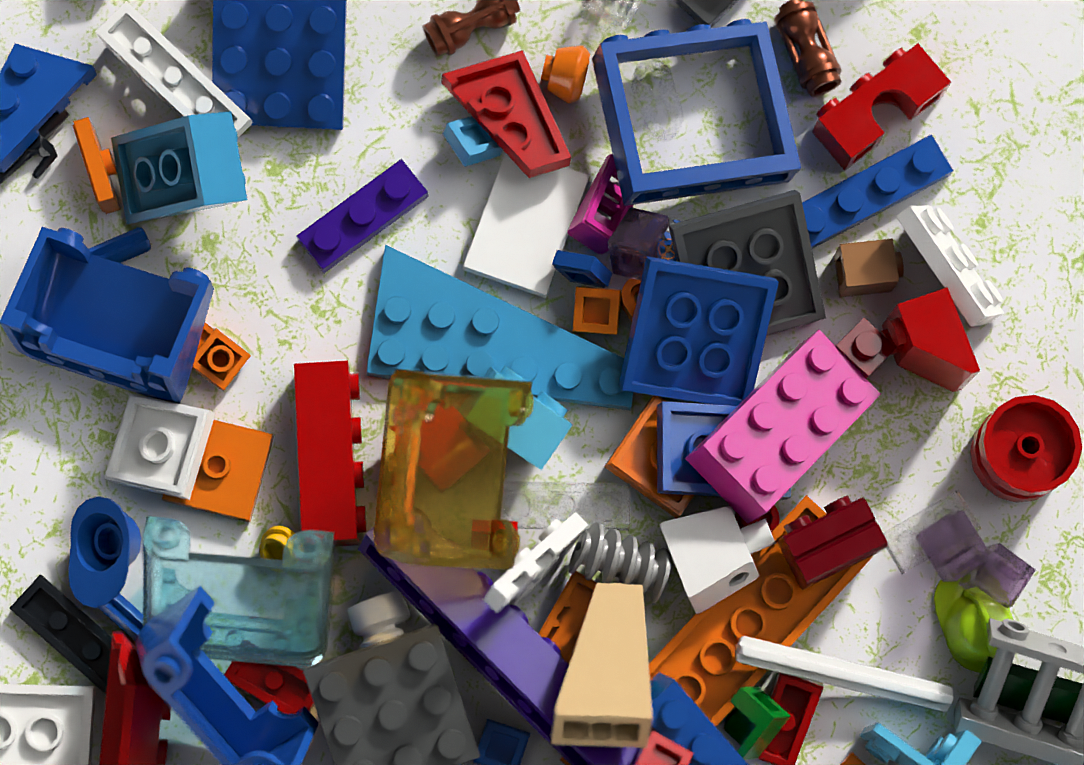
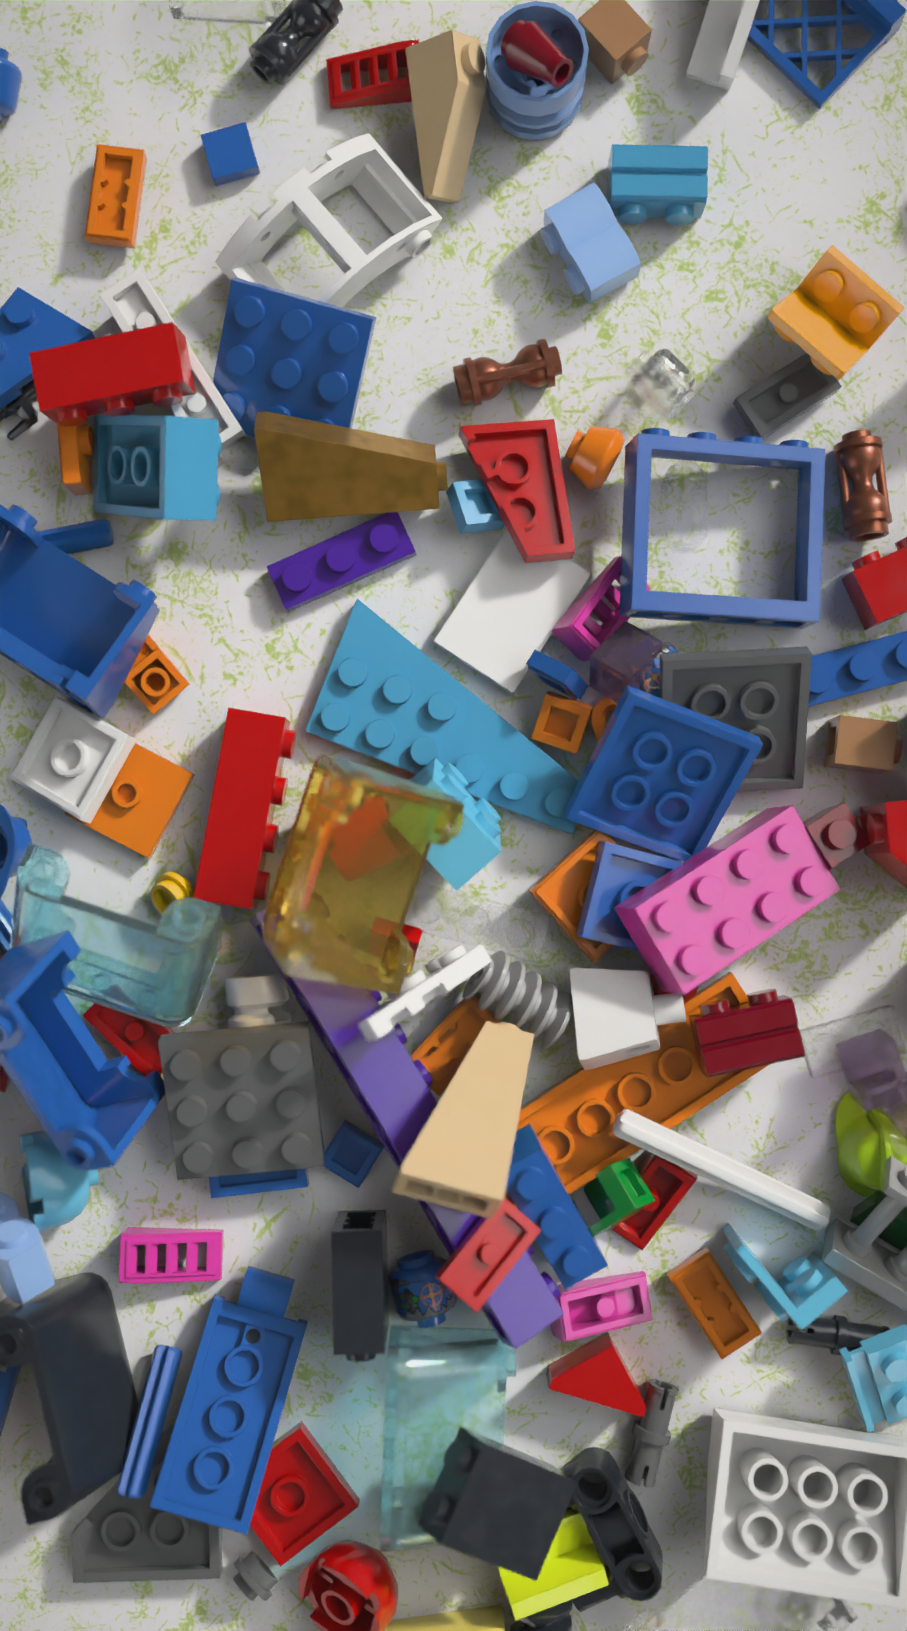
camera: 25 degrees right, 10 degrees up
(126, 95) = (112, 374): none -> red brick
(345, 136) = (342, 471): none -> pearl gold slope

